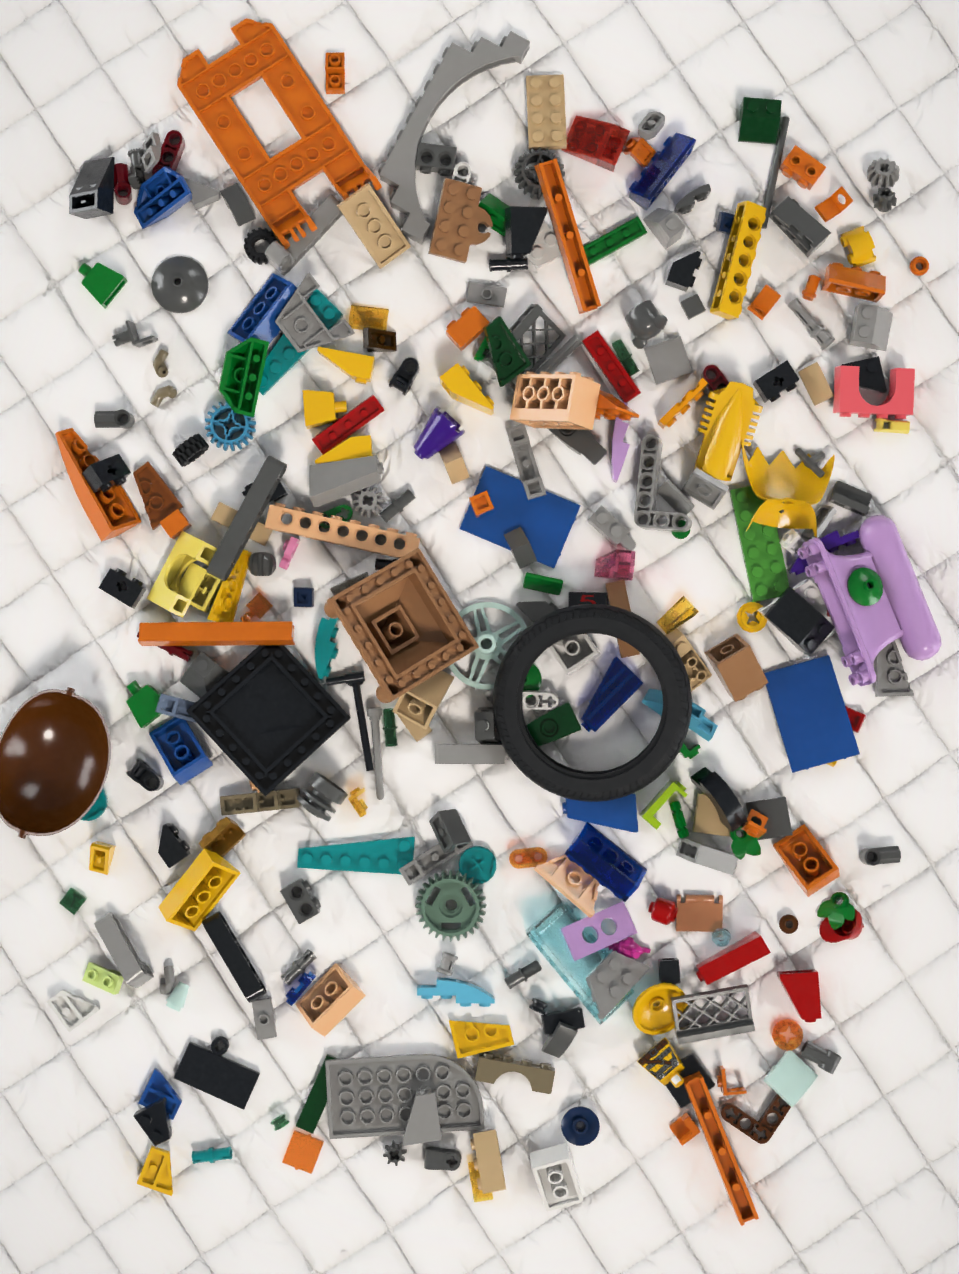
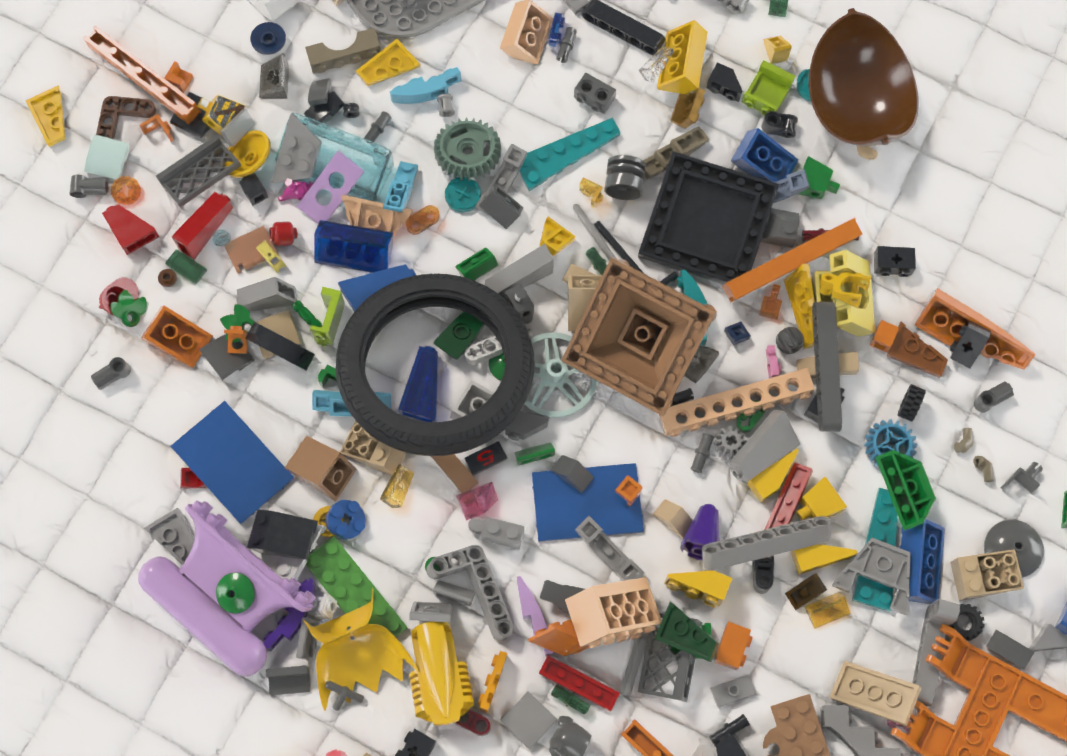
camera: 150 degrees right, 15 degrees down
(135, 817) = (768, 88): none -> lime panel
(198, 588) = (832, 284): none -> yellow piece
(219, 272) = (986, 574): none -> tan slope
(226, 899) = (653, 67): none -> clear slope
(391, 393) = (766, 543): none -> light grey beam
(417, 774) = (555, 236): none -> yellow wing
(501, 787) = (477, 264): none -> green slope
(534, 896) = (401, 187): none -> medium azure slope
(595, 1079) = (274, 78): none -> clear smoke slope
(655, 1040) = (237, 127): none -> light grey tile
(685, 894) = (268, 254): none -> light yellow bar
(743, 617) = (341, 529): none -> blue plate
(766, 926) = (186, 266): none -> clear green tile
(825, 1155) = (48, 114): none -> yellow wing

